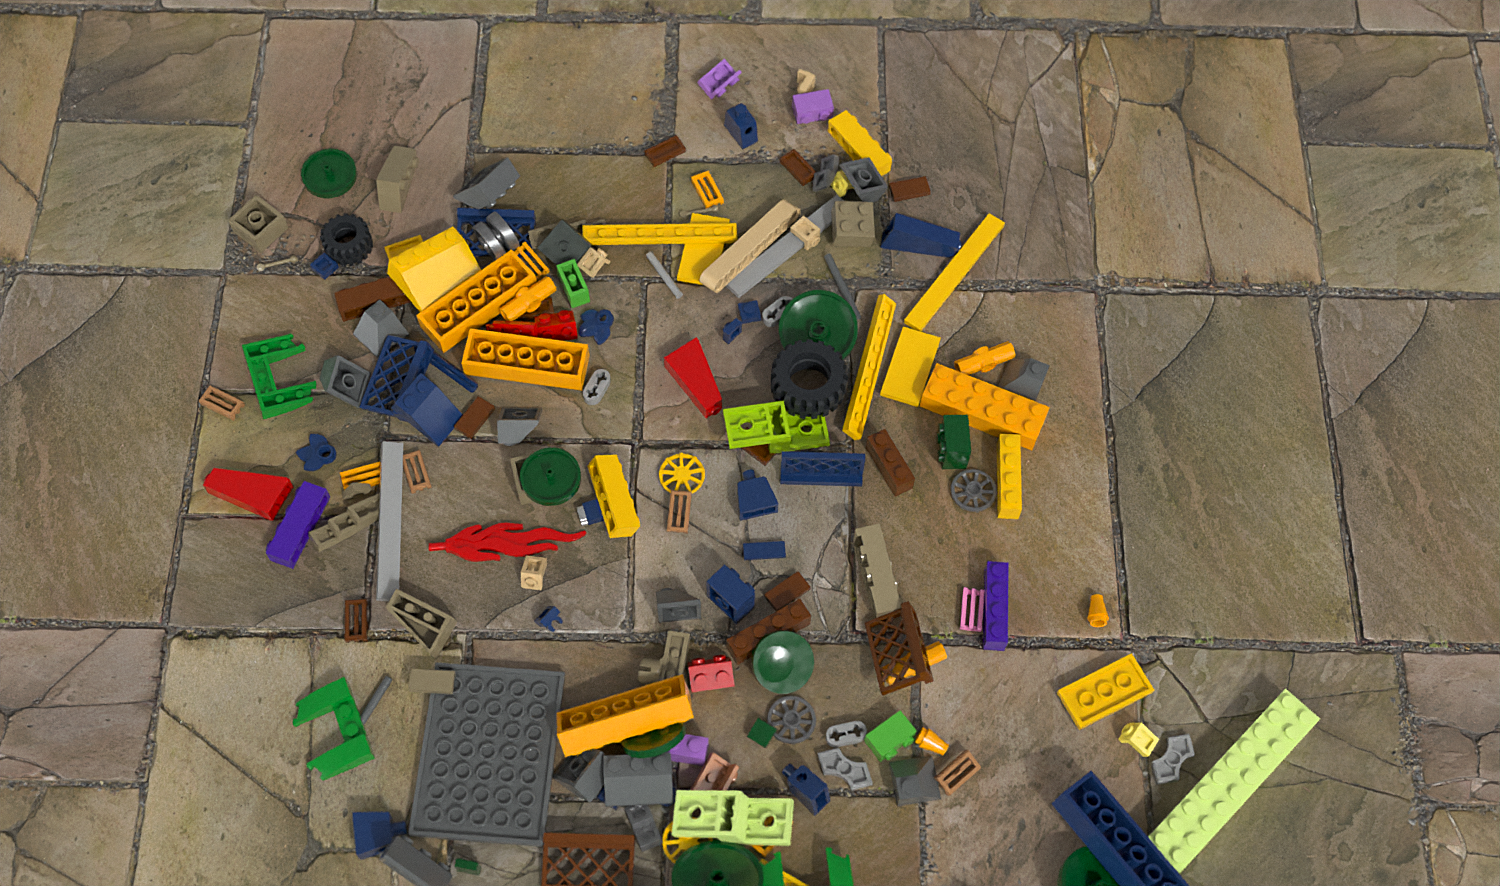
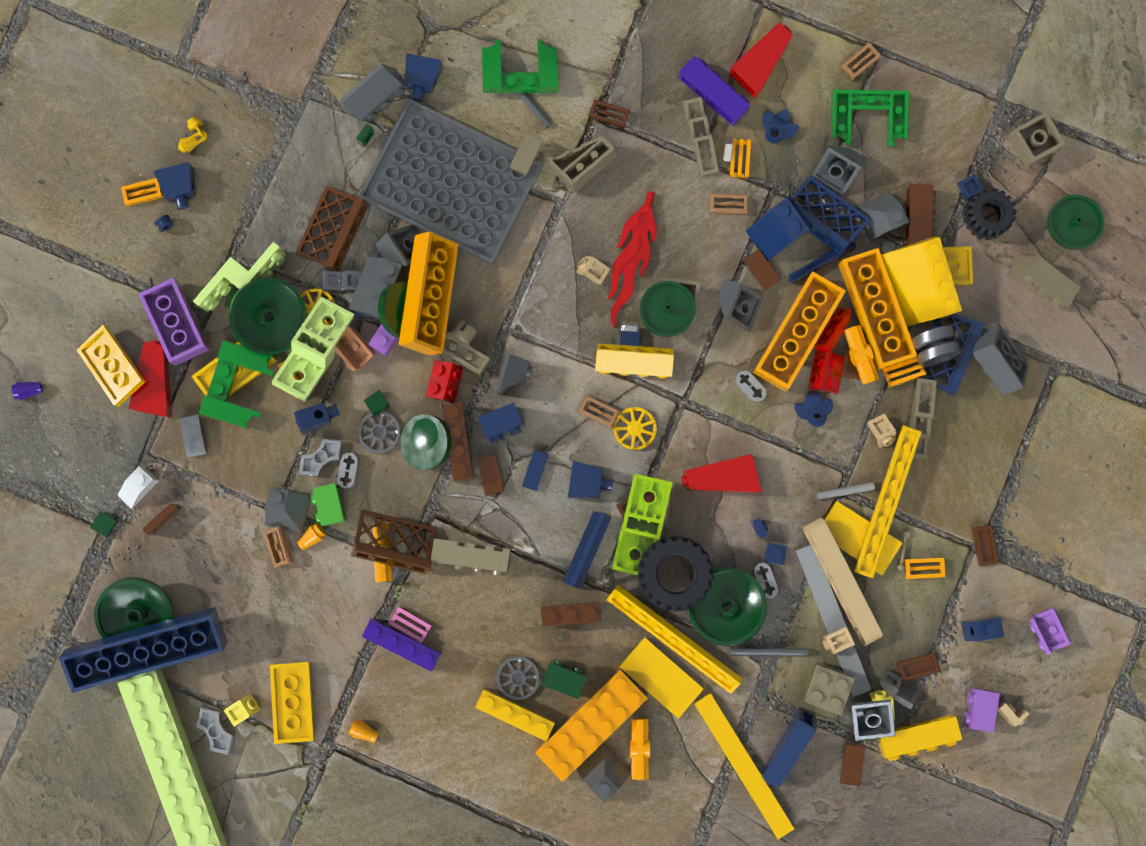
camera: 115 degrees right, 20 degrees up
(260, 266) = (991, 132): dark tan hinge -> none
(389, 520) = (687, 166): light grey tile -> none
(547, 616) = (547, 267): dark blue tile -> none
(564, 244) = (905, 407): pearl dark grey plate -> none
(573, 283) = (863, 401): bright green brick -> none

